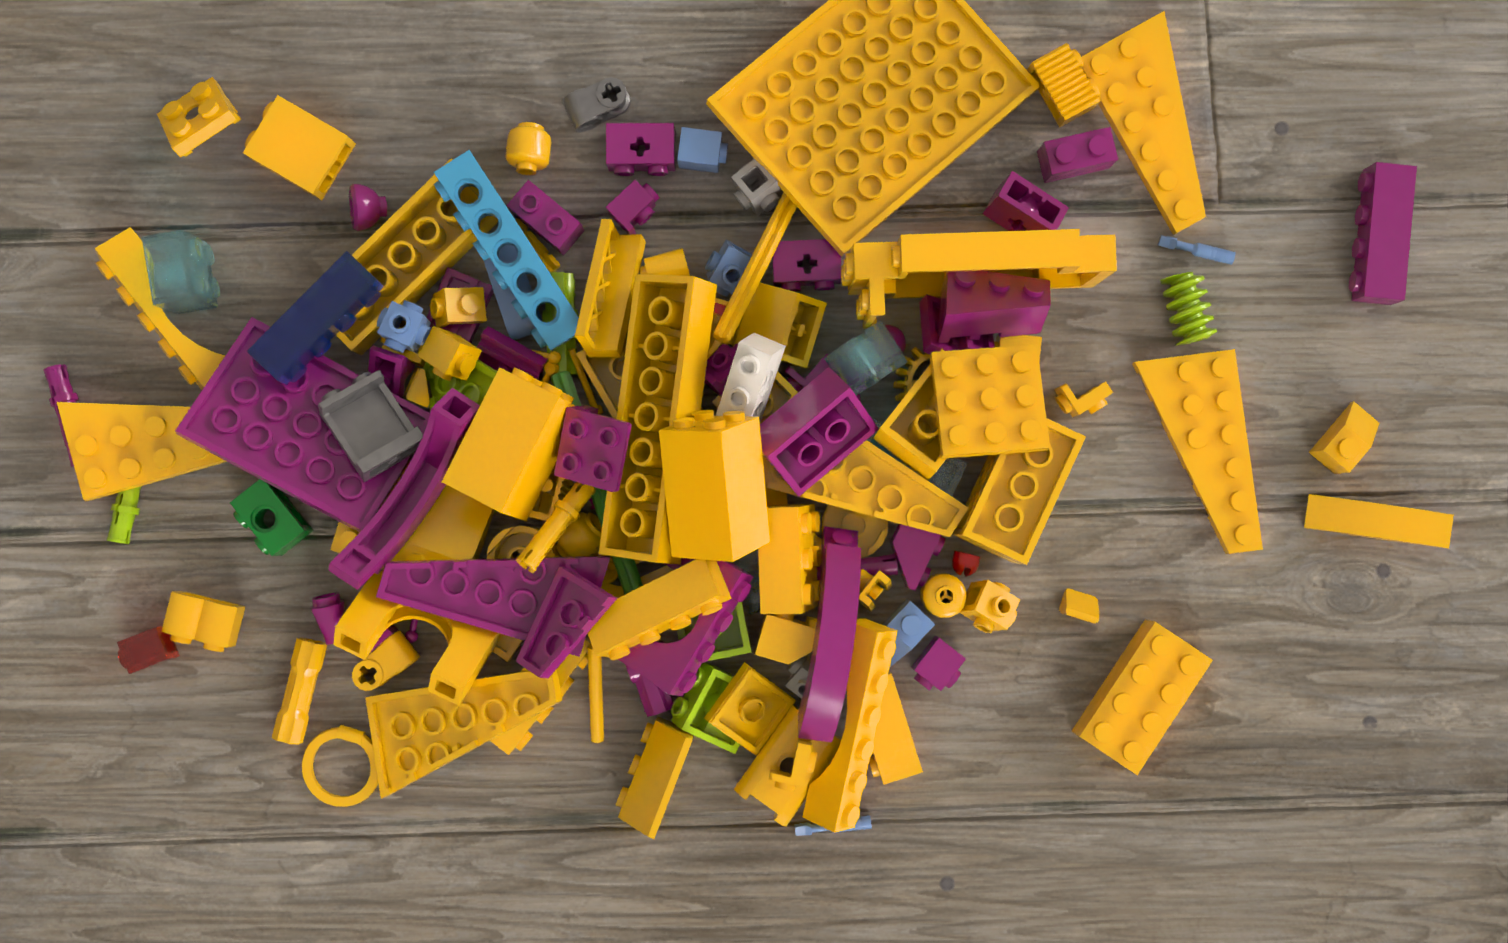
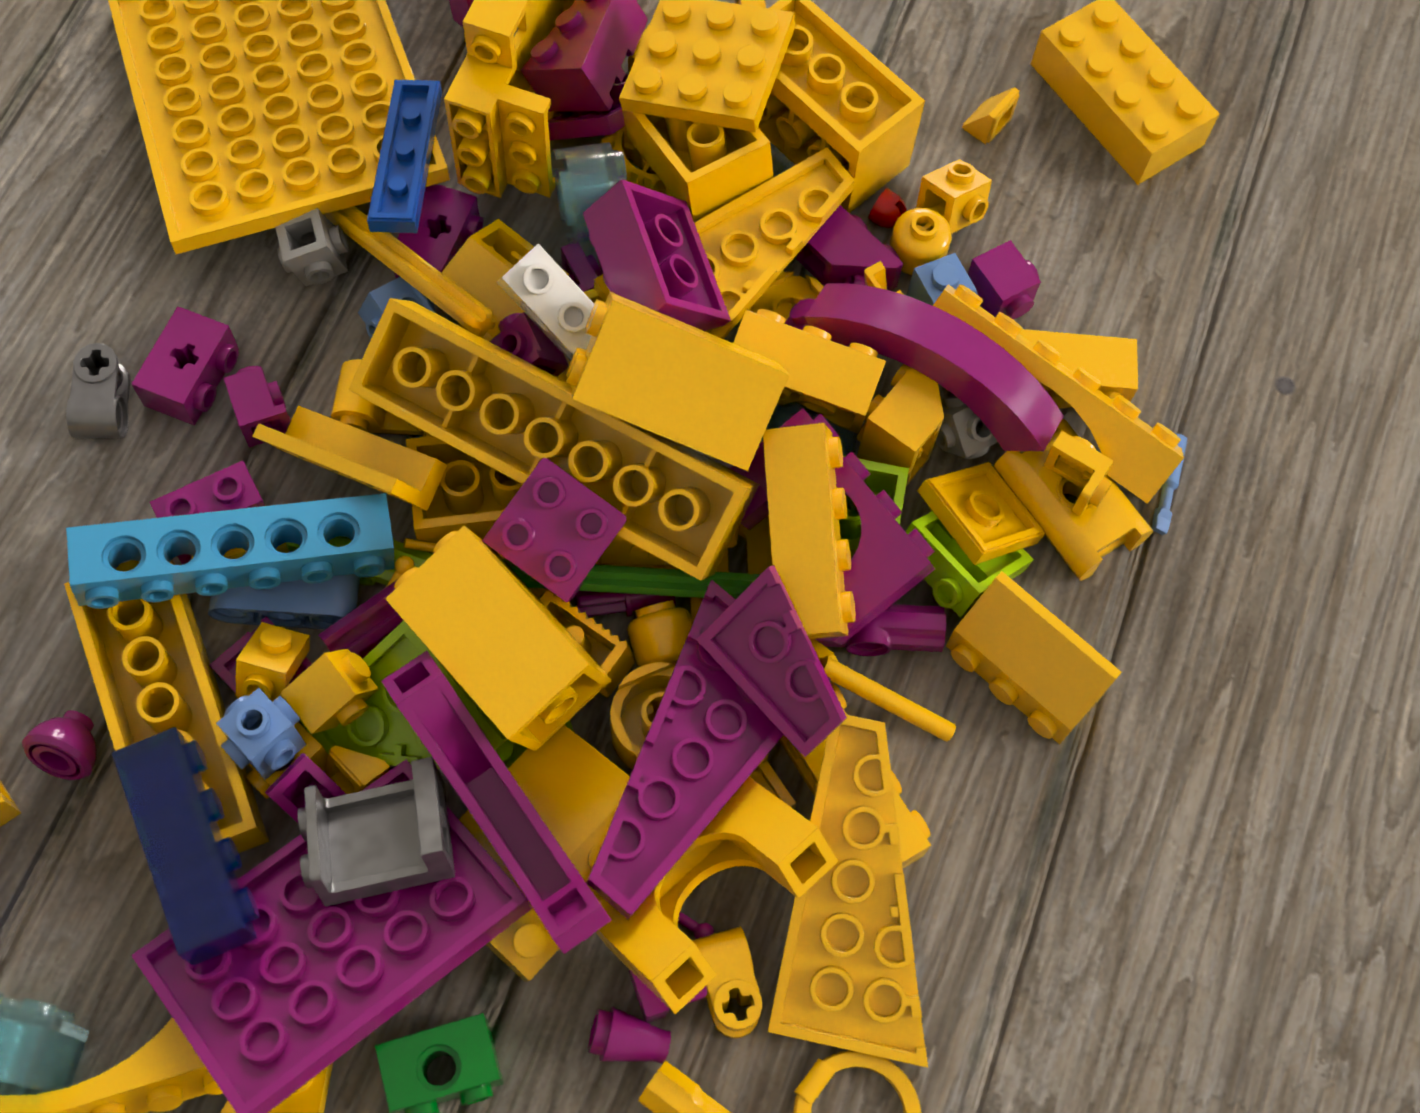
camera: 70 degrees left, 20 degrees down
(528, 148) = (107, 496): yellow head -> none
(564, 514) = (625, 617): yellow pin -> none
(701, 150) = (230, 296): medium blue brick -> none
(839, 221) = (405, 157): none -> blue tile

